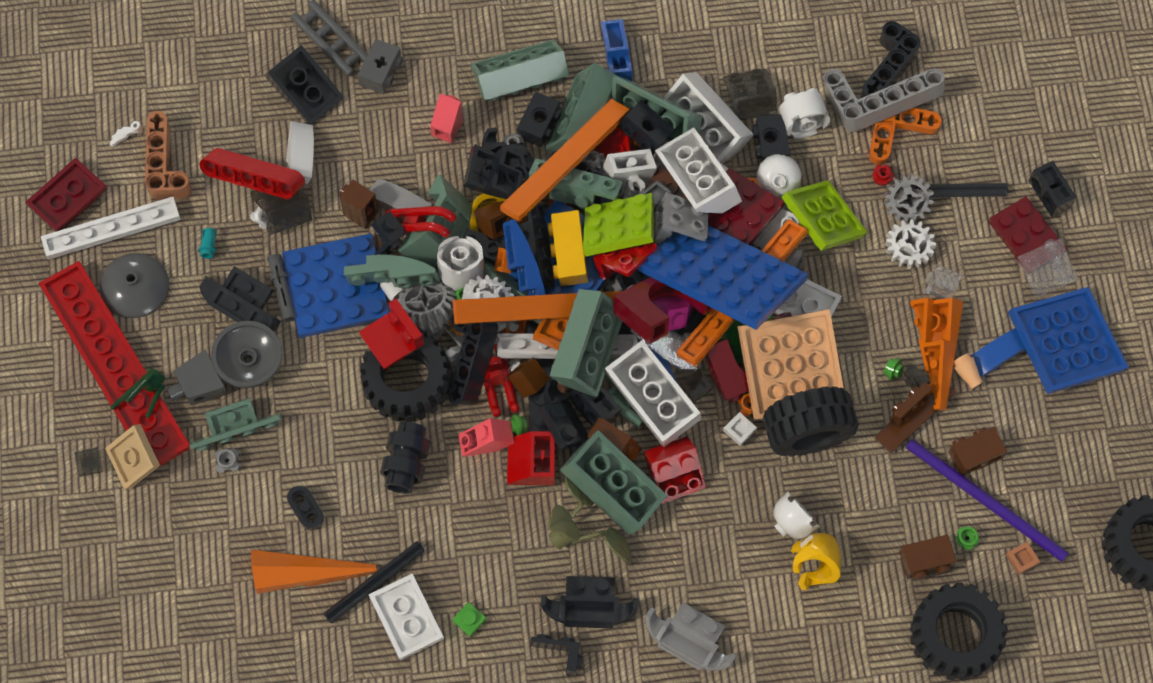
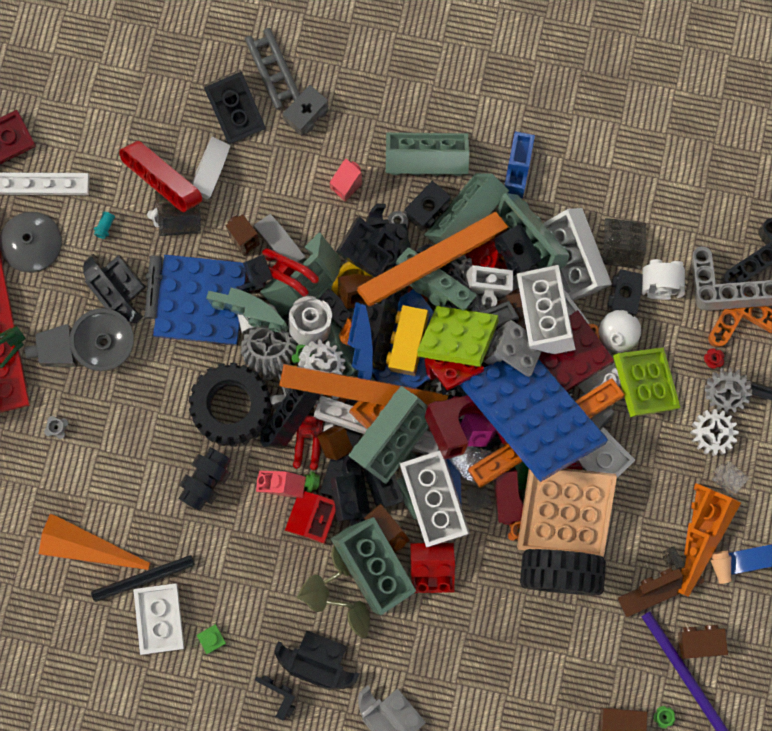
camera: 20 degrees right, 10 degrees up
(123, 134) = (65, 100): white piece -> none
(161, 154) = (92, 131): nougat beam -> none
(232, 420) = (71, 394): sand green bracket -> none
(306, 508) = (107, 493): black plate -> none
(392, 336) = (225, 371): red bracket -> none
(739, 429) = (502, 550): white plate -> none
(793, 518) = (519, 648): white cylinder -> none
(818, 547) = (531, 686): yellow piece -> none
(893, 369) = (657, 542): bright green plate -> none

